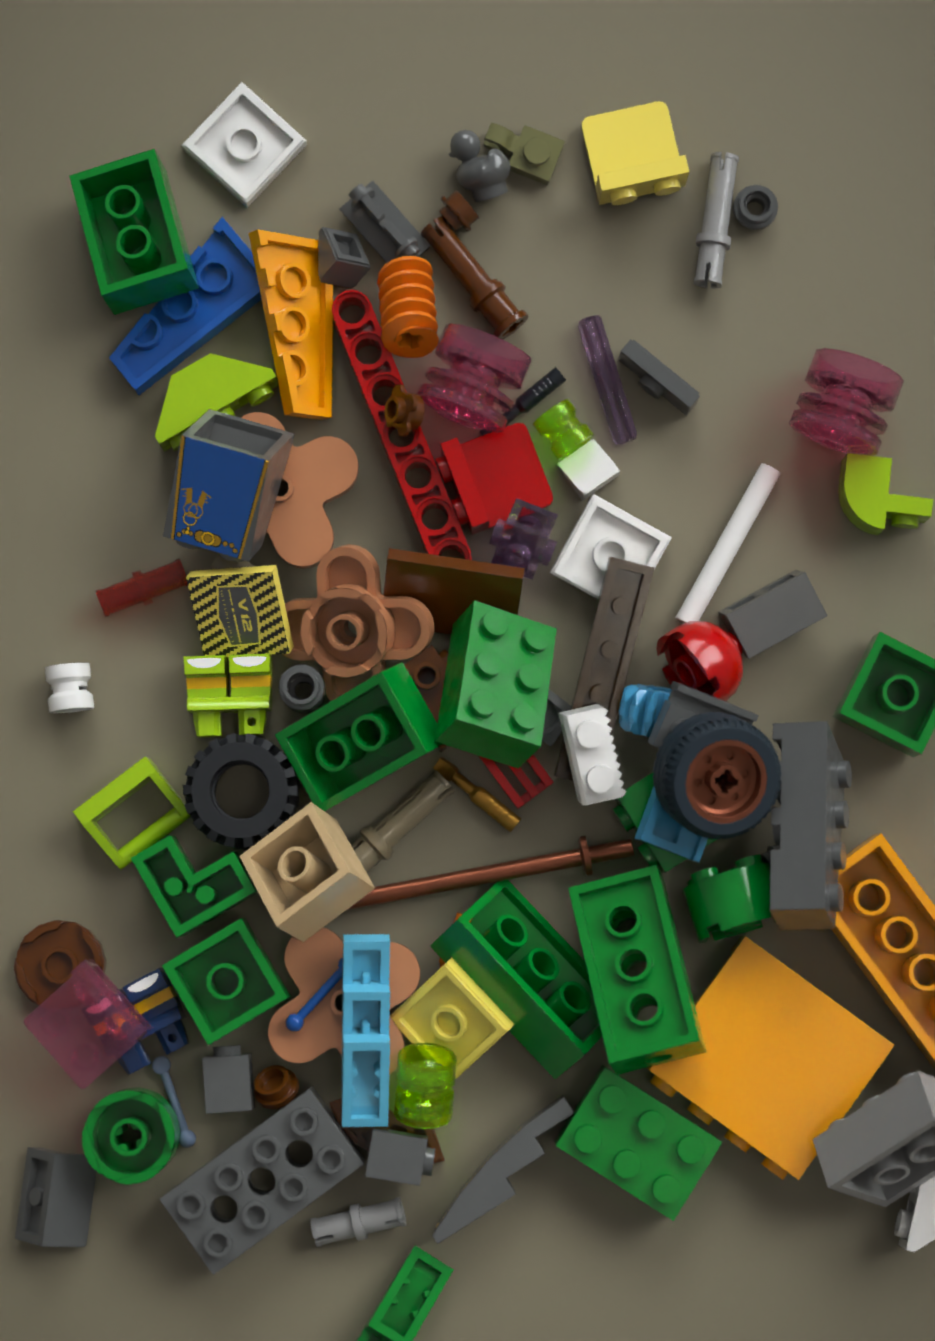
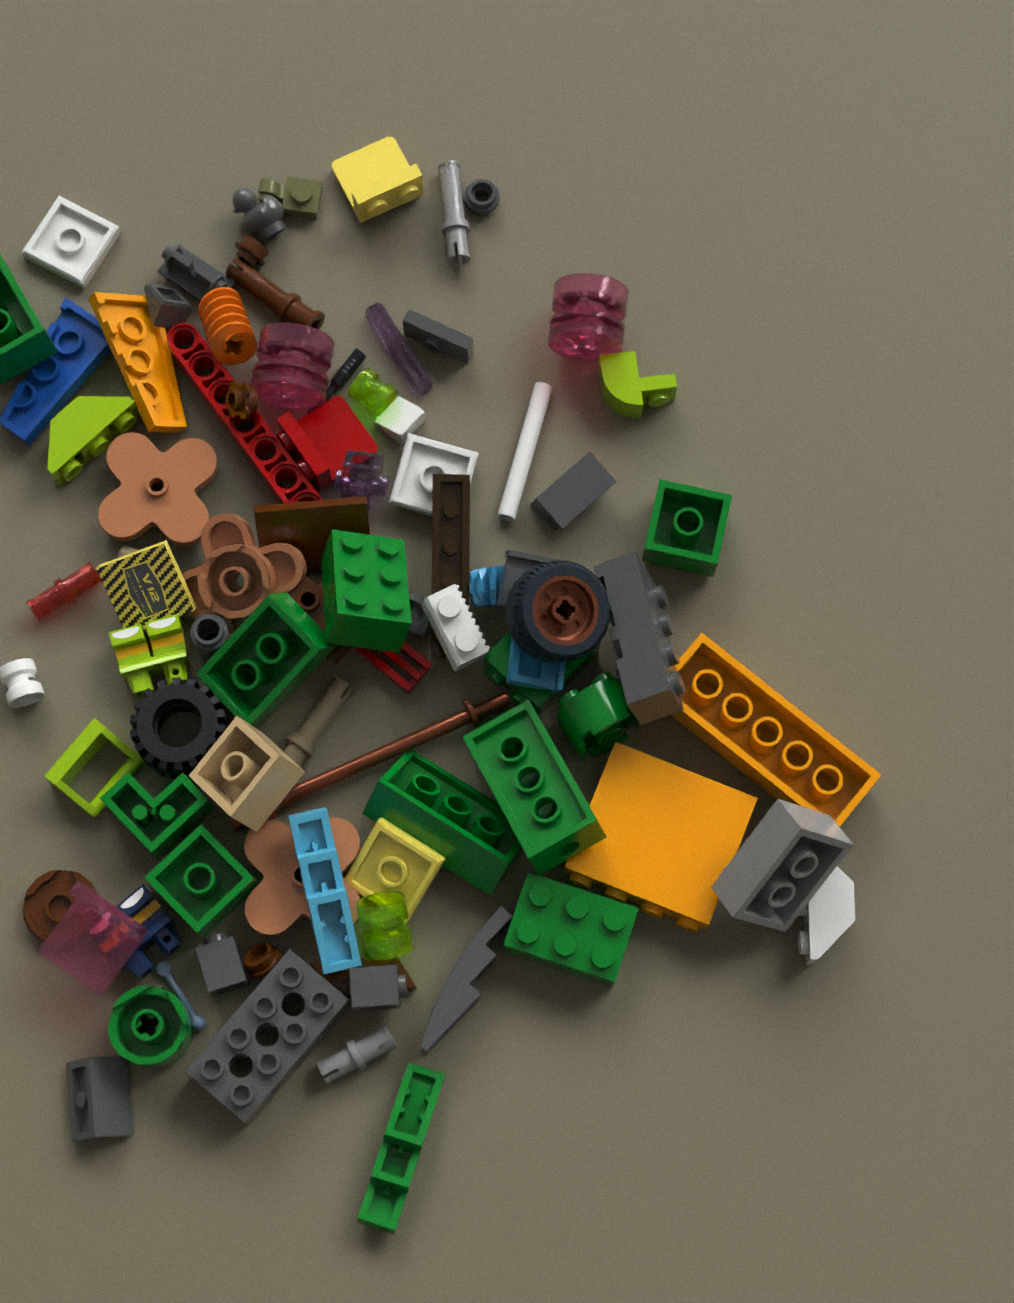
camera: 15 degrees left, 10 degrees down
(226, 485) = (112, 490): slope -> none
(295, 1021) = (265, 900): blue hinge -> none
(479, 795) = (376, 690): pearl gold piece -> none
(703, 658) = (525, 531): red cylinder -> none

